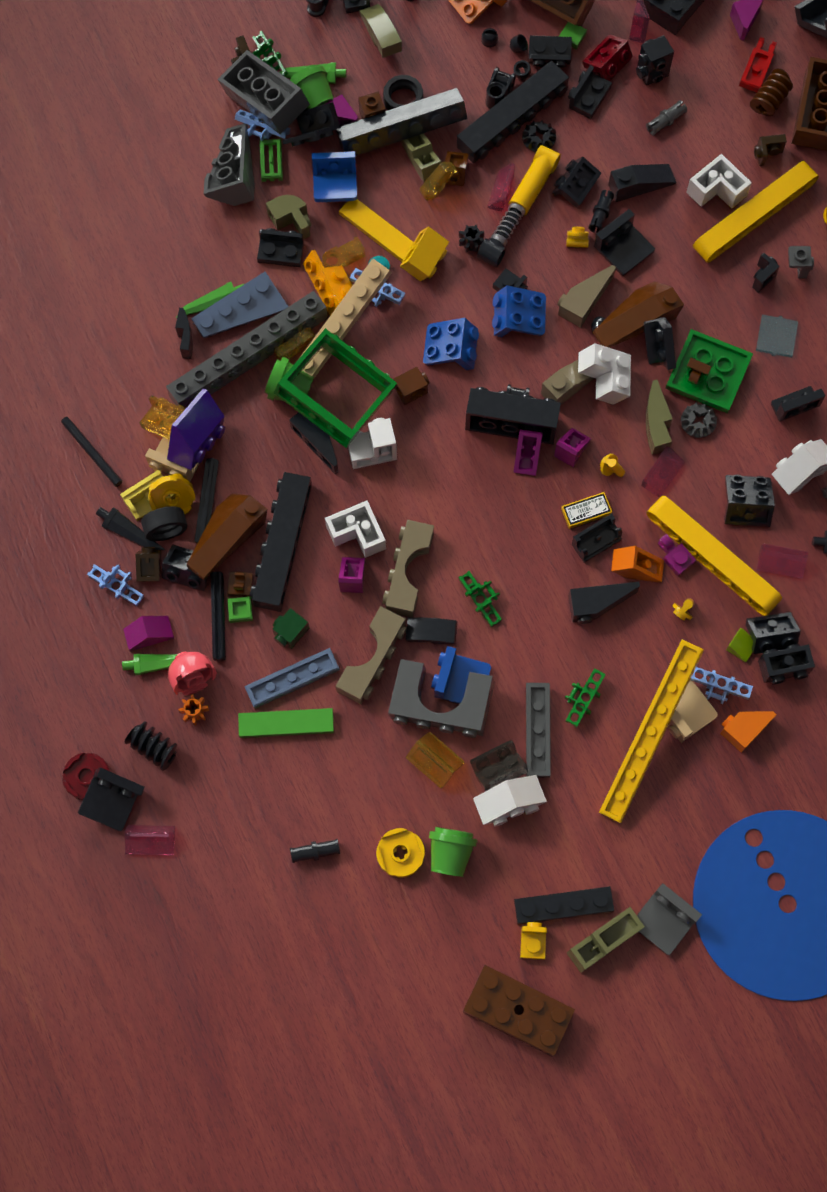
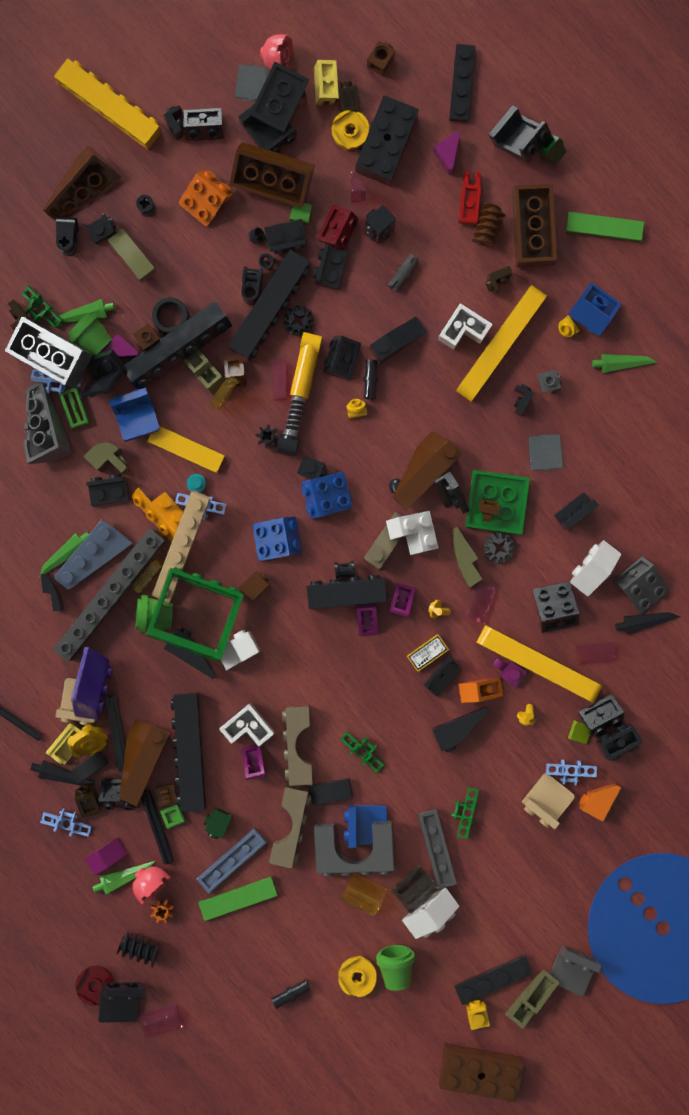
camera: 20 degrees left, 15 degrees up
(161, 416) = (59, 675): clear yellow bracket -> none
(345, 254) = (165, 479): clear yellow piece -> none
(424, 254) = (232, 464): yellow brick -> none
(489, 37) = (229, 238): black hinge -> none
(584, 296) = (375, 467): dark tan slope -> none
(623, 243) = (398, 406): black bracket -> none
(651, 731) = (527, 830): yellow tile -> none

